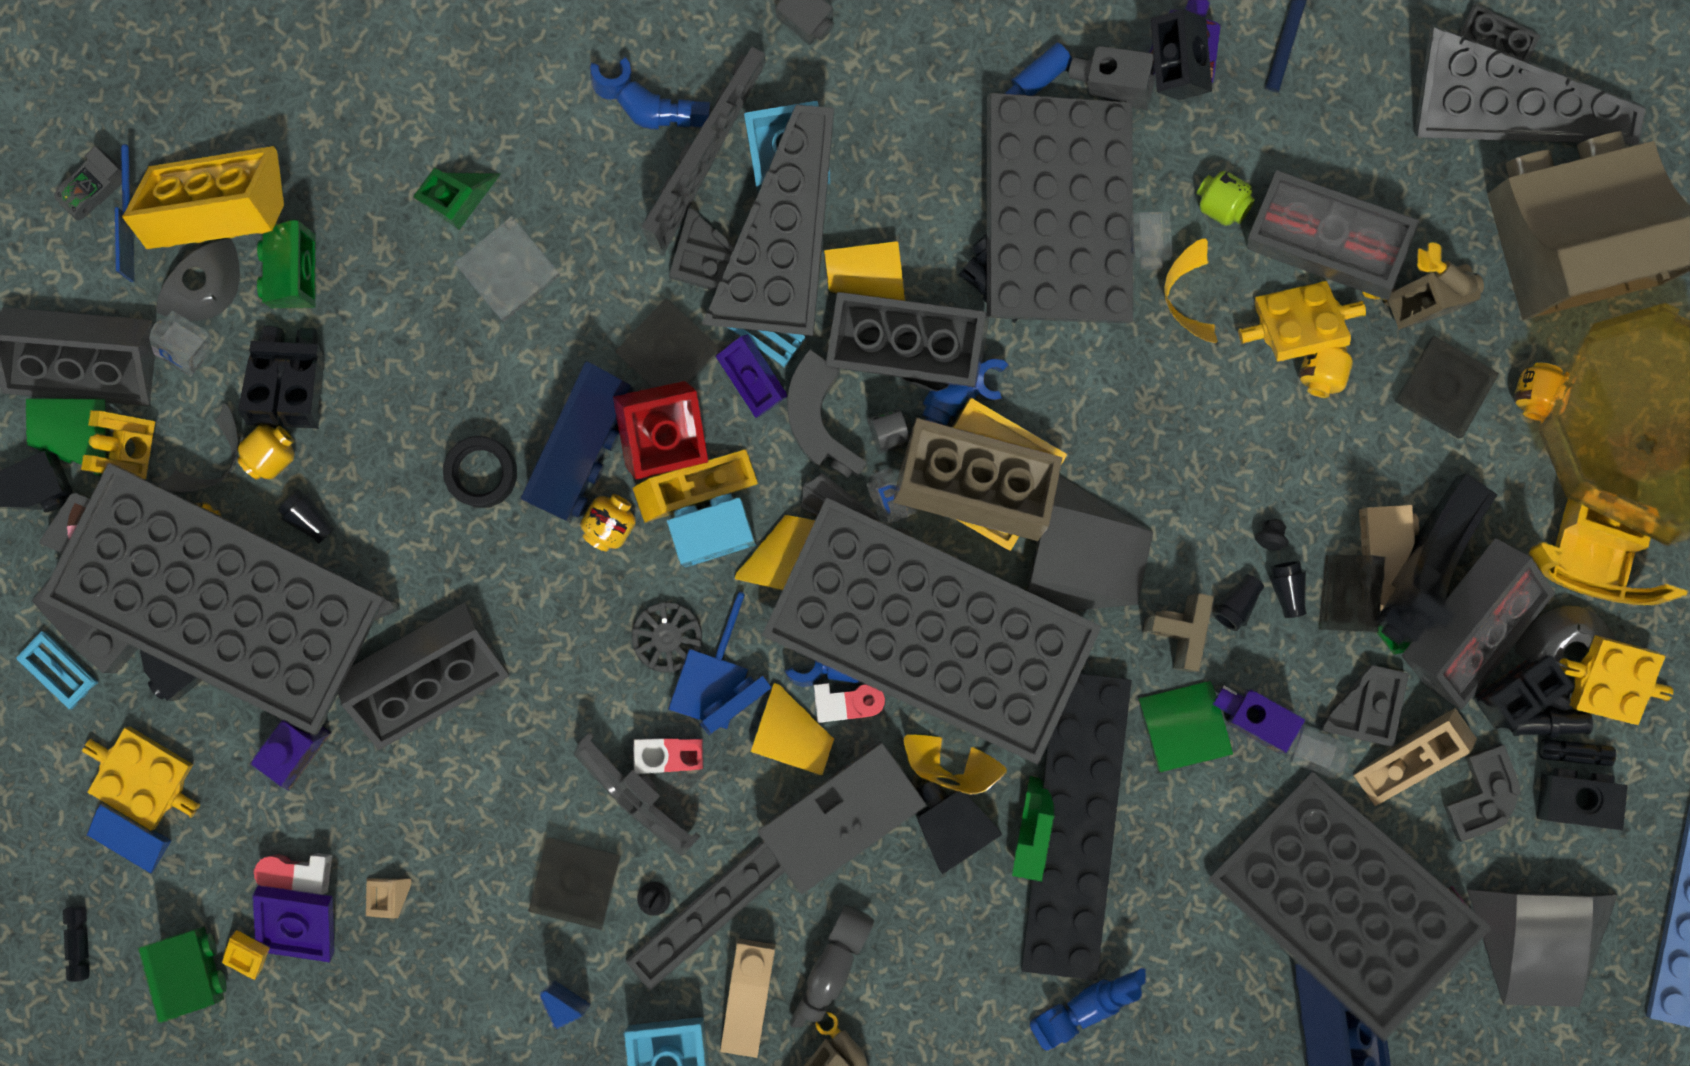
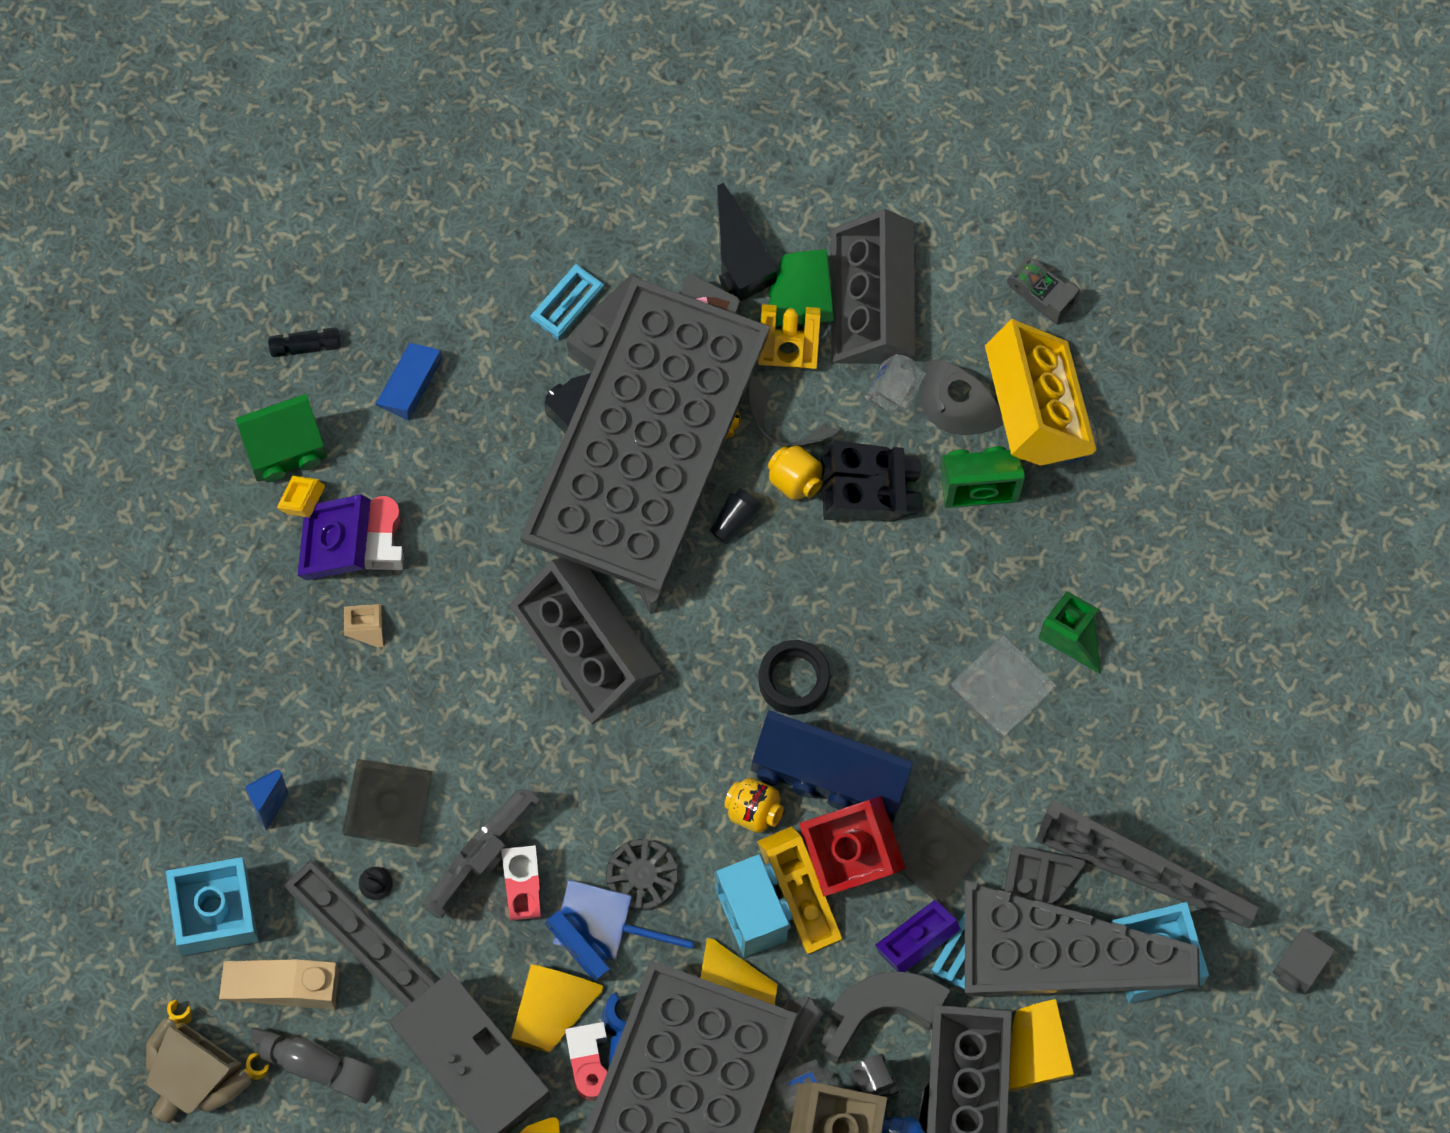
camera: 85 degrees right, 15 degrees down
(123, 234) = (992, 323): blue piece -> none
(140, 778) = (467, 386): yellow plate -> none
(288, 753) = (500, 518): dark purple torso -> none
(645, 107) = (1185, 805): blue piece -> none

